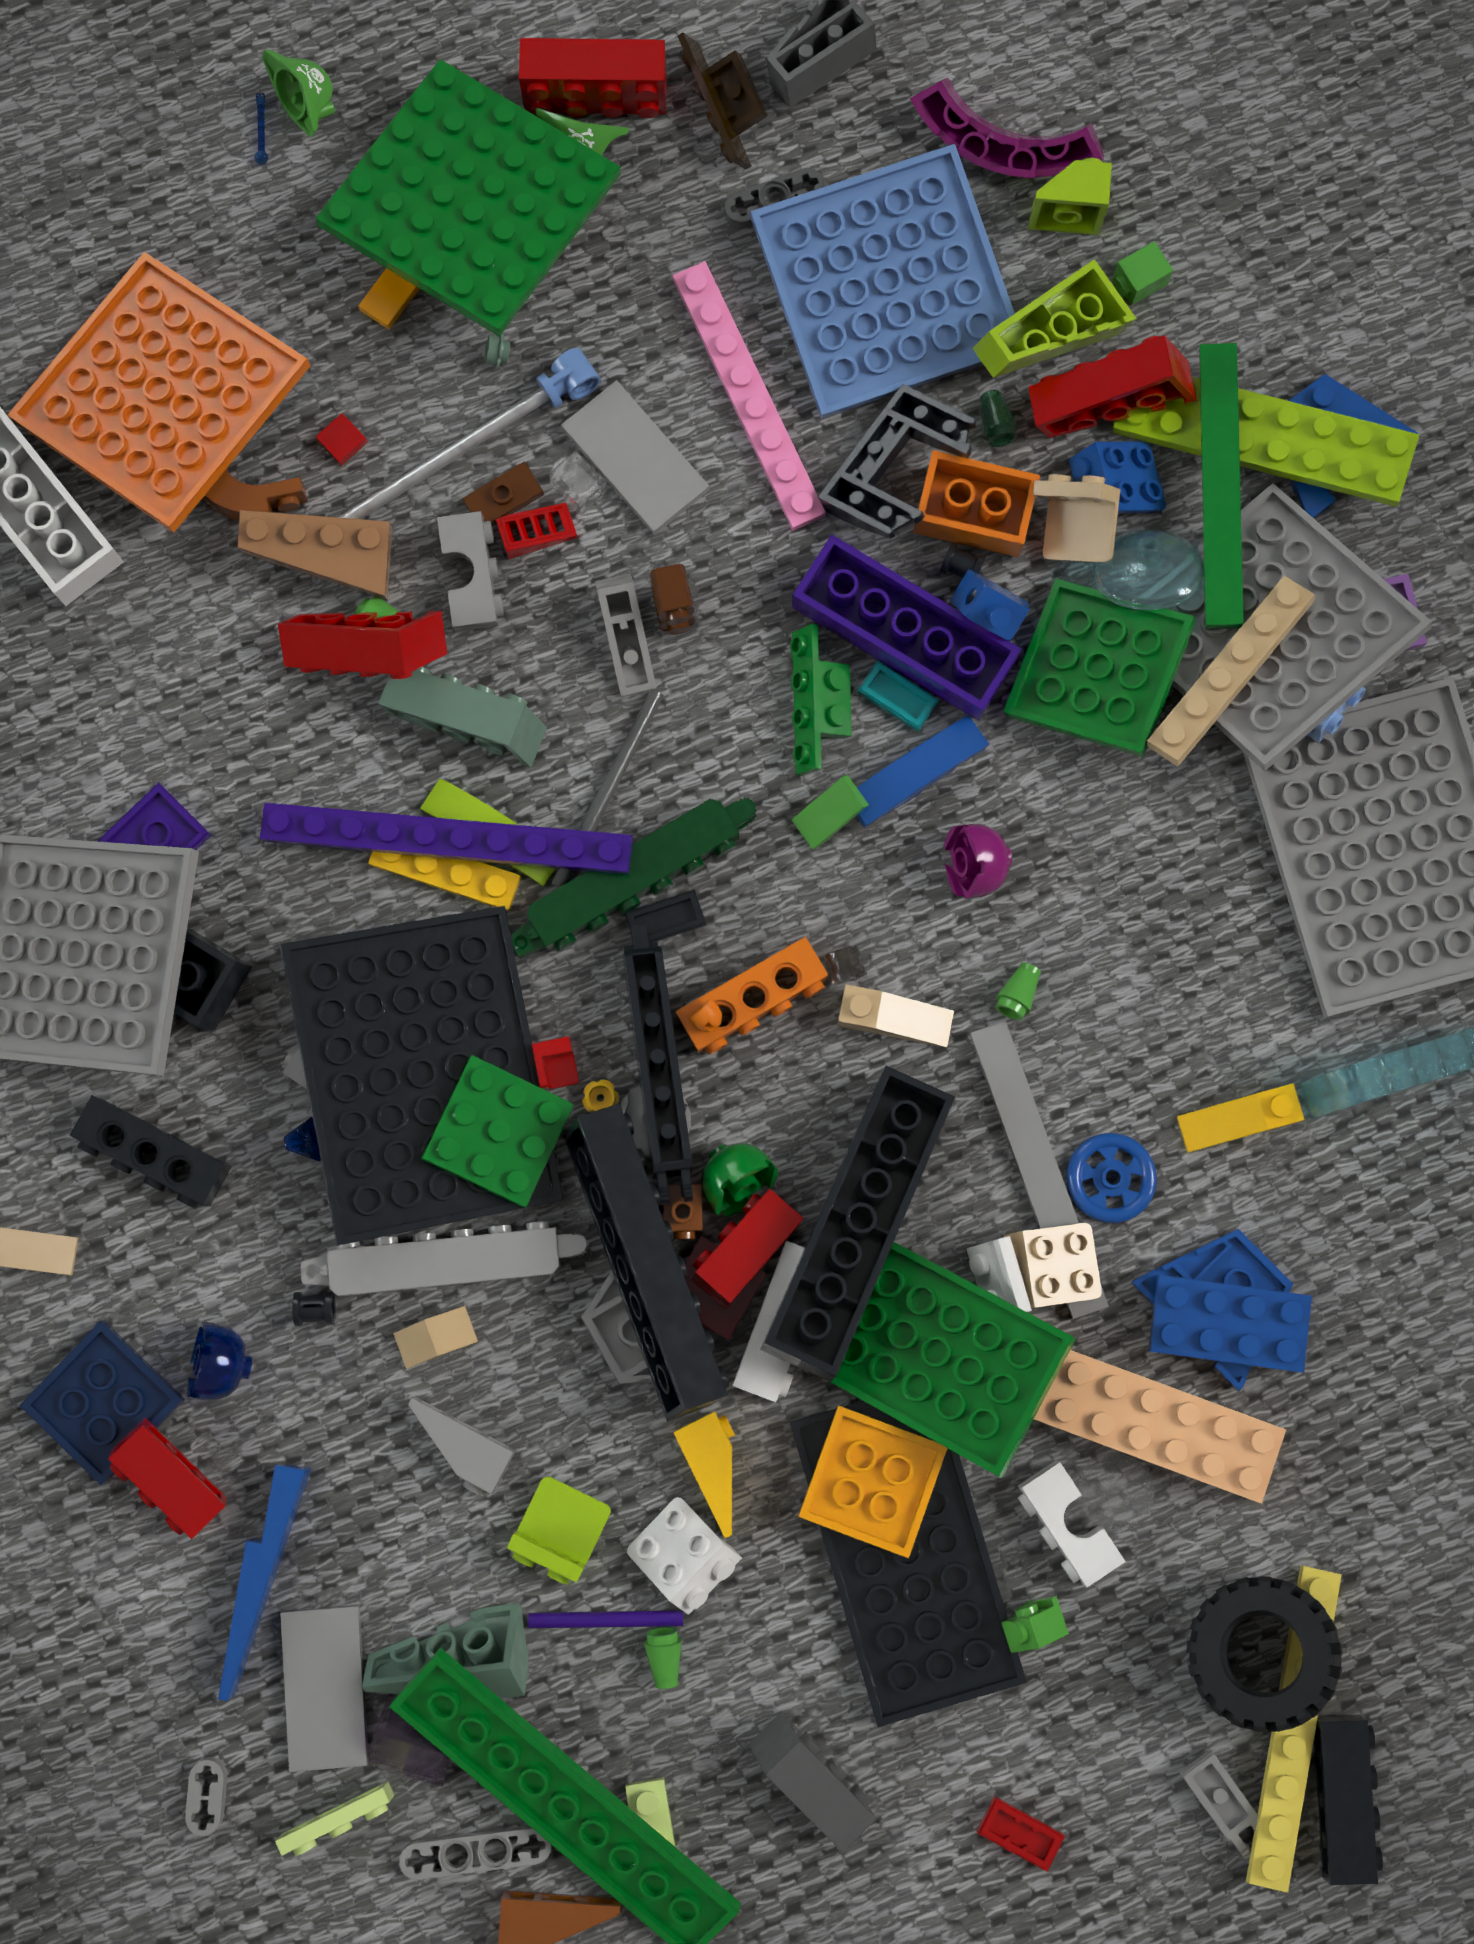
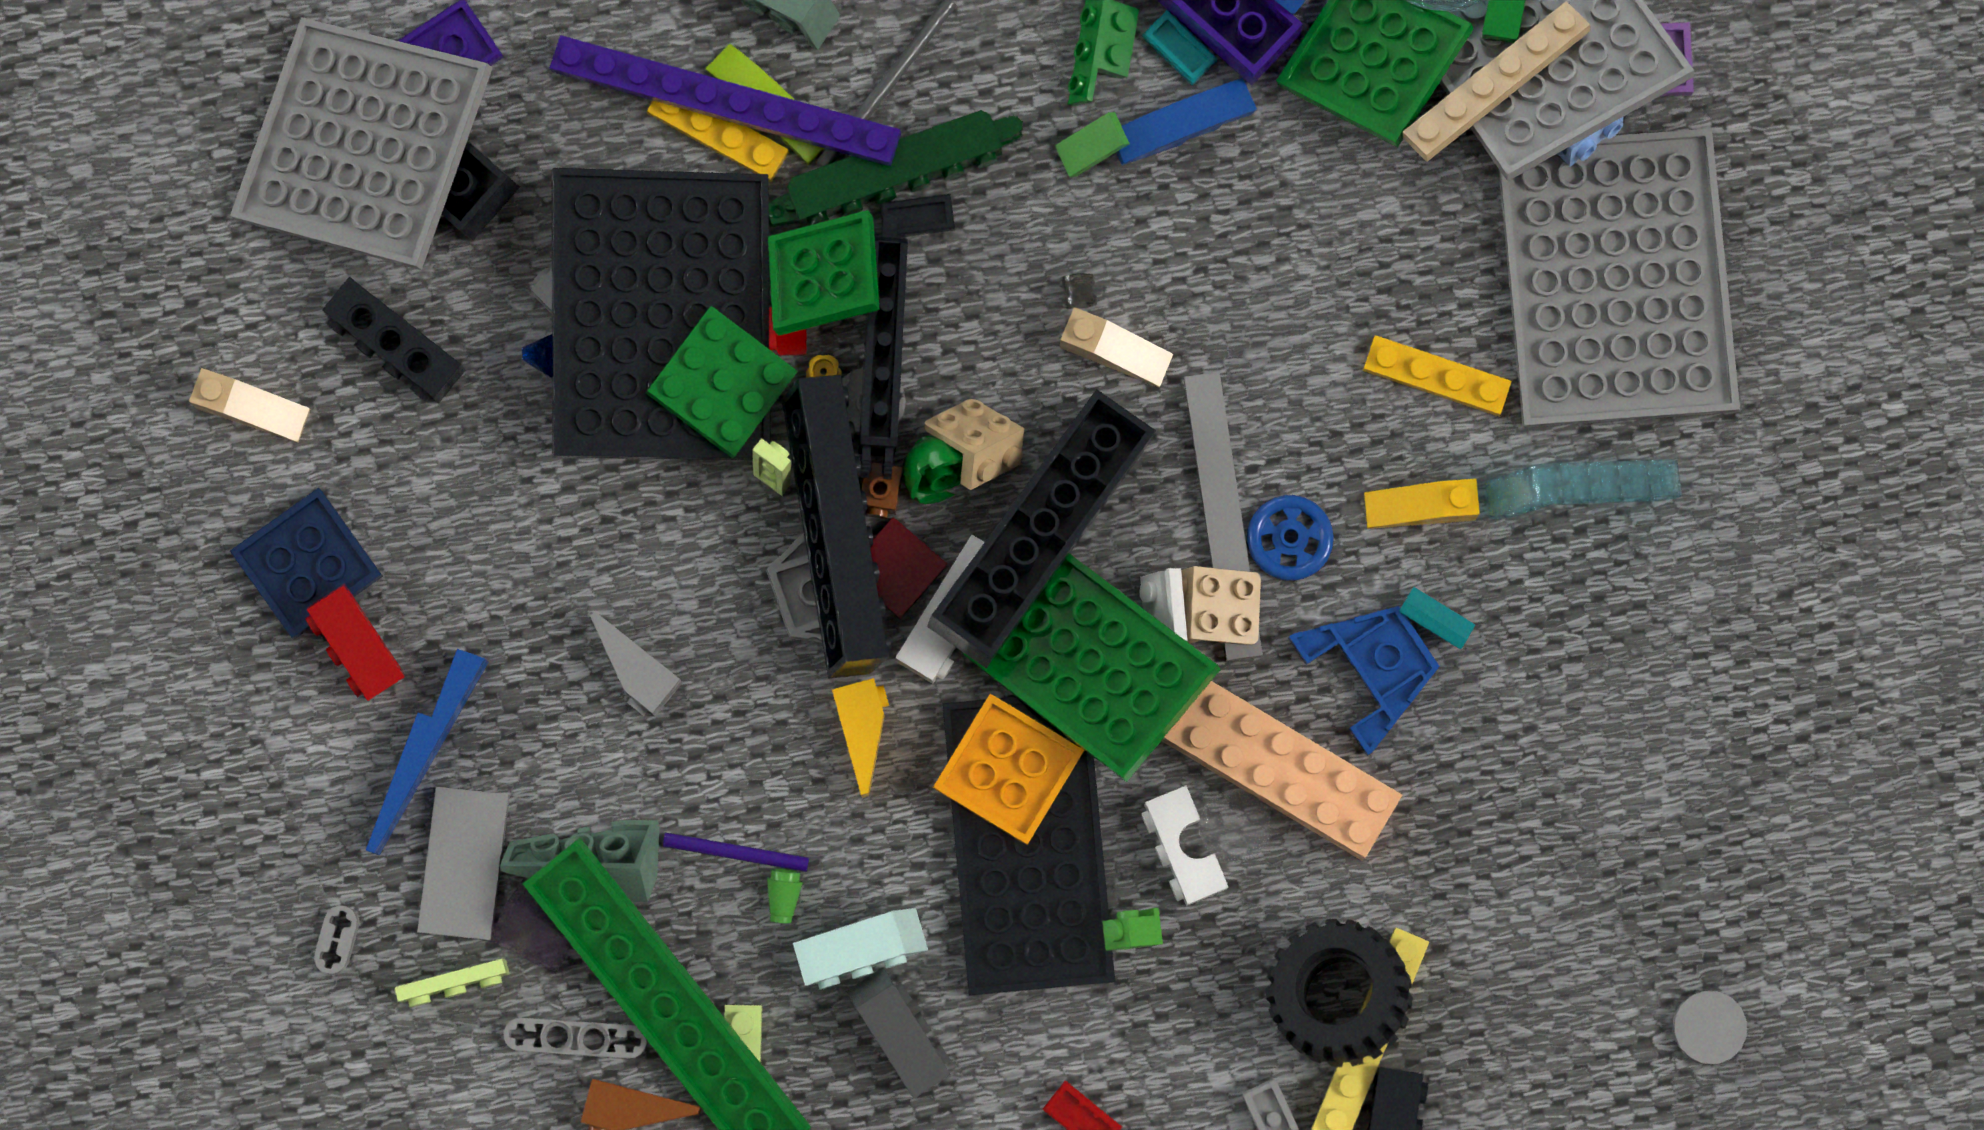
camera: 10 degrees right, 0 degrees up
(217, 1362) = (420, 546): clear blue cylinder -> none
(314, 1308) = (518, 514): black bush -> none
(435, 1337) = (626, 563): tan slope -> none
(445, 1261) = (648, 494): light grey hinge -> none
(559, 1530) = (709, 760): lime bracket -> none
(567, 1210) = (772, 465): none -> yellowish green plate
(581, 999) = (823, 273): none -> green plate
(683, 1556) = (819, 806): white bracket -> none
(707, 1016) = (938, 312): orange hinge -> none
(745, 1247) = (932, 534): red brick -> none
(755, 1700) = (860, 947): none -> light aqua wedge
(777, 1136) = (986, 438): none -> tan bracket
(797, 958) = (1032, 275): orange brick -> none
(978, 860) = (1224, 215): magenta cylinder -> none
(1018, 993) = (1237, 348): bright green cone -> none
(1227, 981) = (1437, 375): none -> yellow plate
(1230, 1323) = (1372, 690): blue plate -> none
(1280, 1233) = (1437, 618): none -> teal tile

